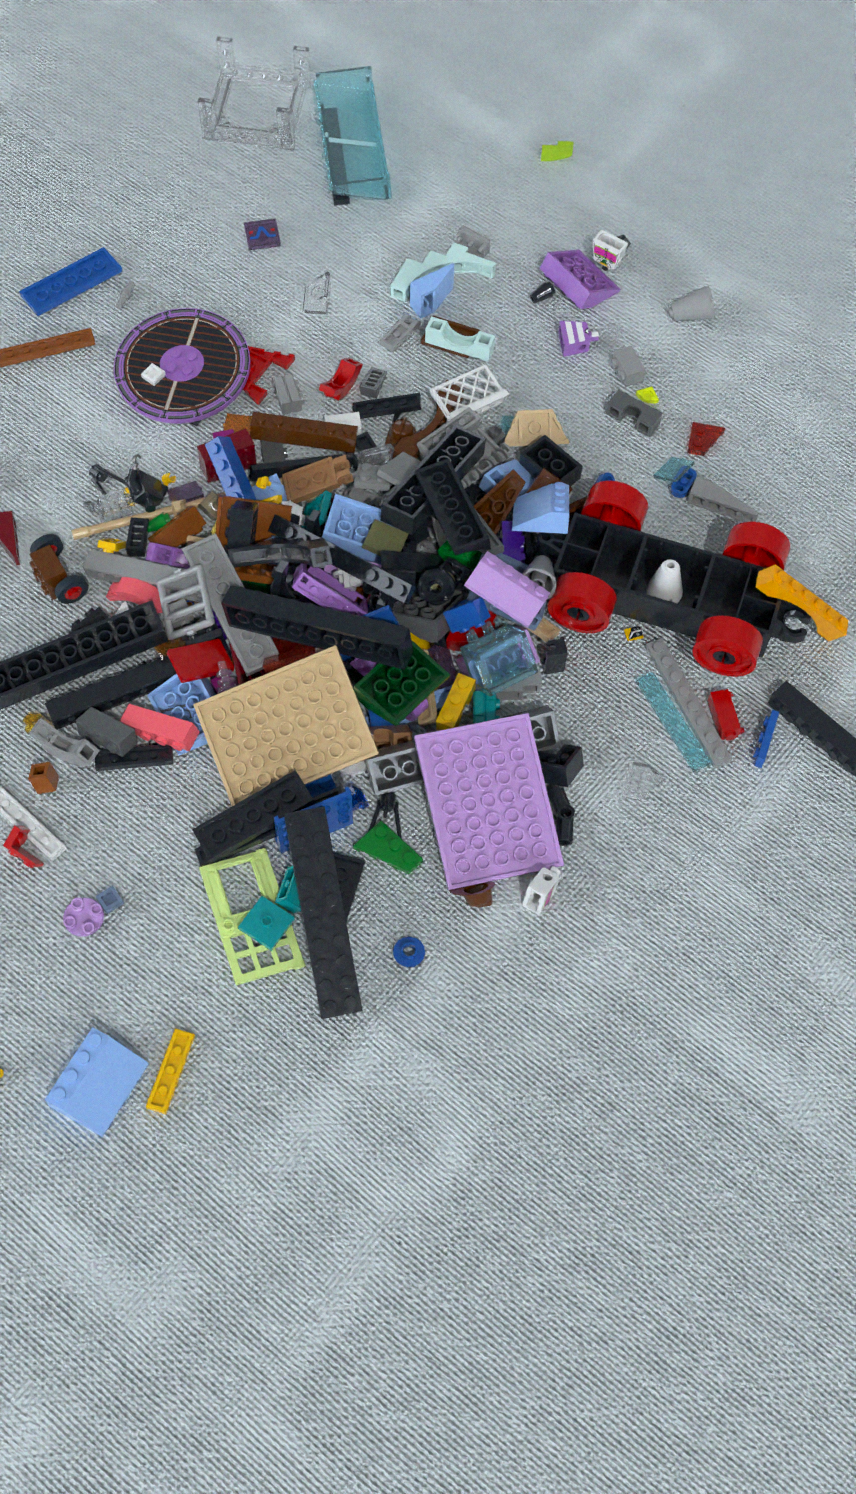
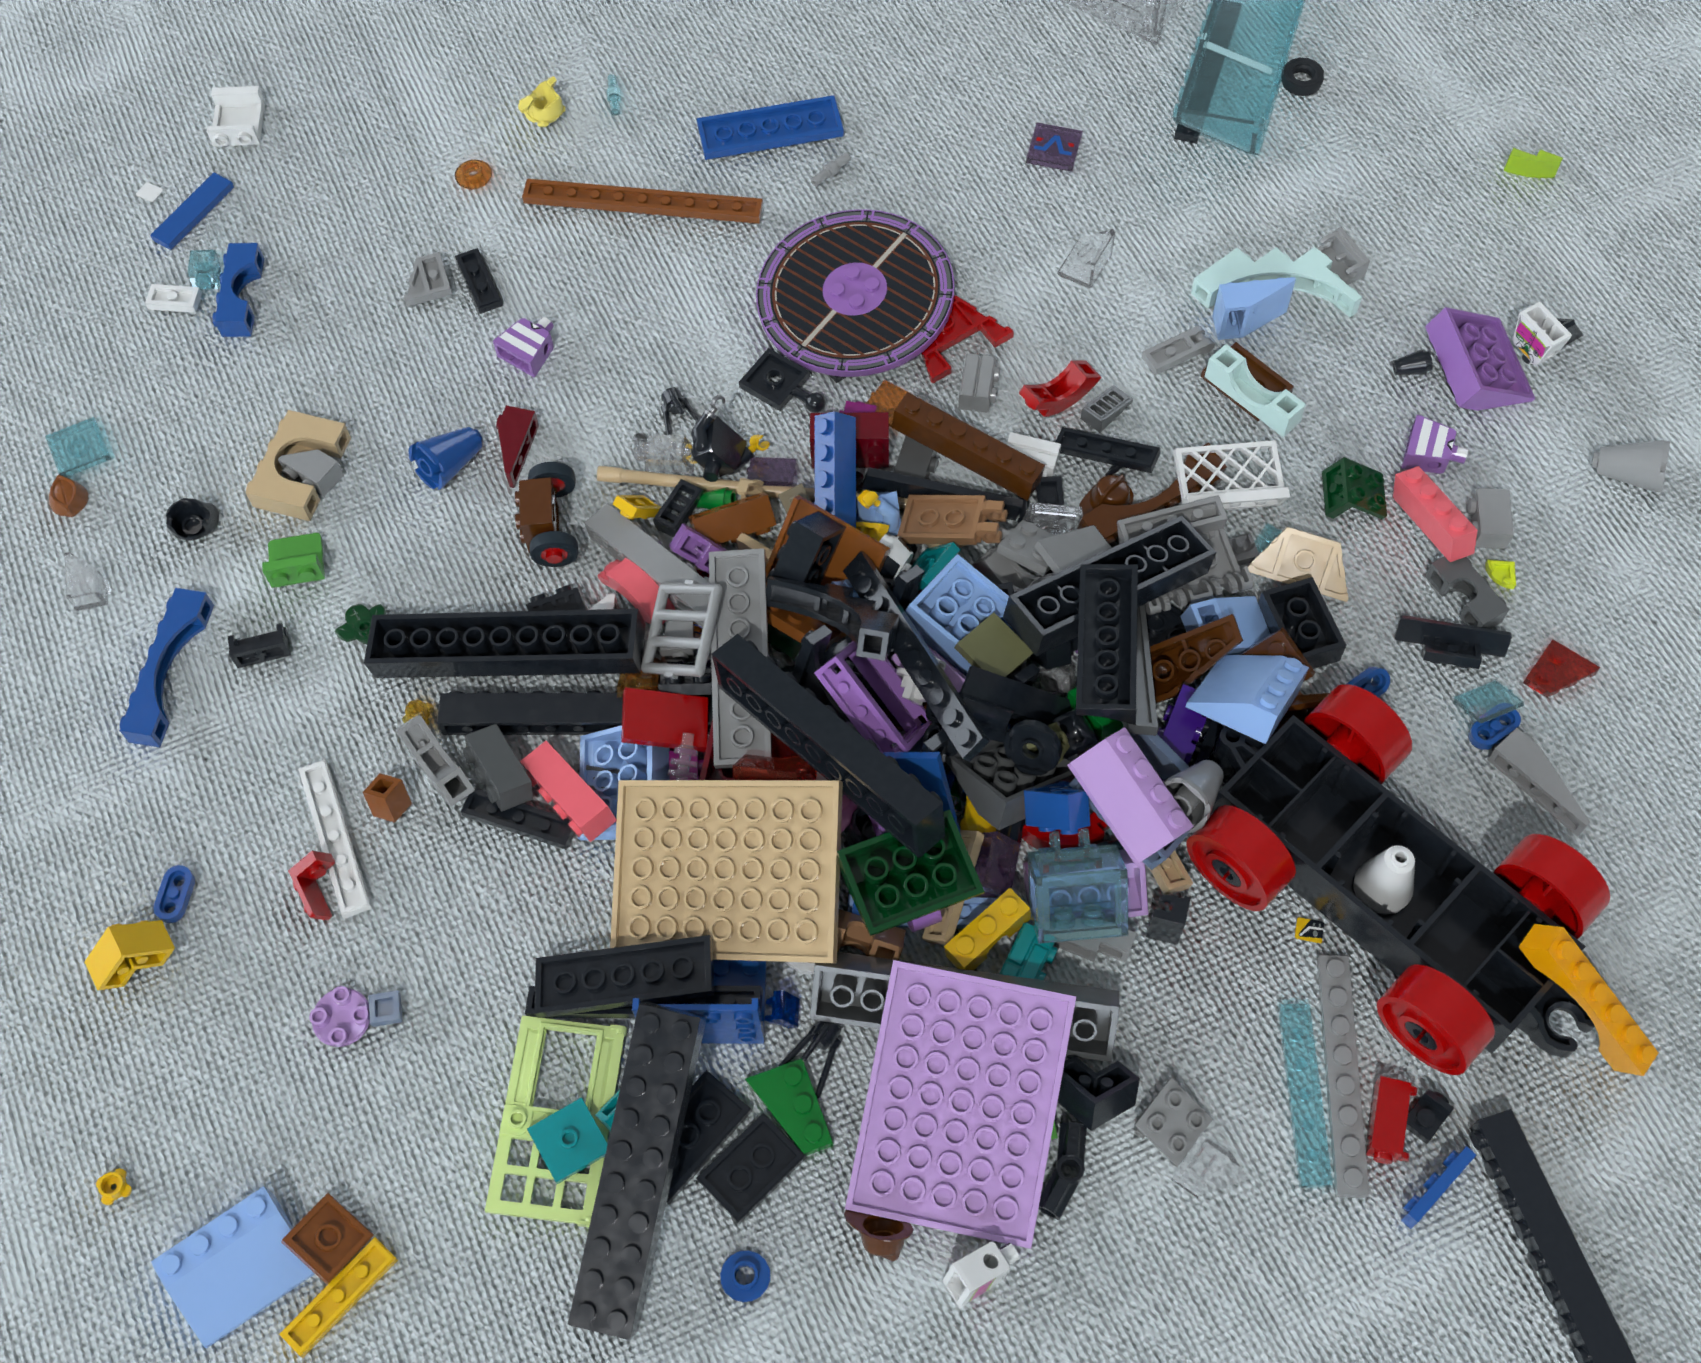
camera: 30 degrees right, 0 degrees up
(147, 1040) = (327, 1238): none -> dark orange tile
(153, 374) = (809, 291): white tile -> none
(165, 444) = (779, 393): none -> black plate
(381, 893) = (751, 1168): none -> black tile
(395, 148) = (1299, 87): none -> black tyre
(540, 376) = (1353, 485): none -> dark green bracket
(596, 374) = (1435, 514): none -> coral brick
(608, 765) = (1172, 1122): none -> light grey hinge
(638, 443) = (1452, 642): none -> black bracket
(744, 703) = (1428, 1115): none -> black bracket

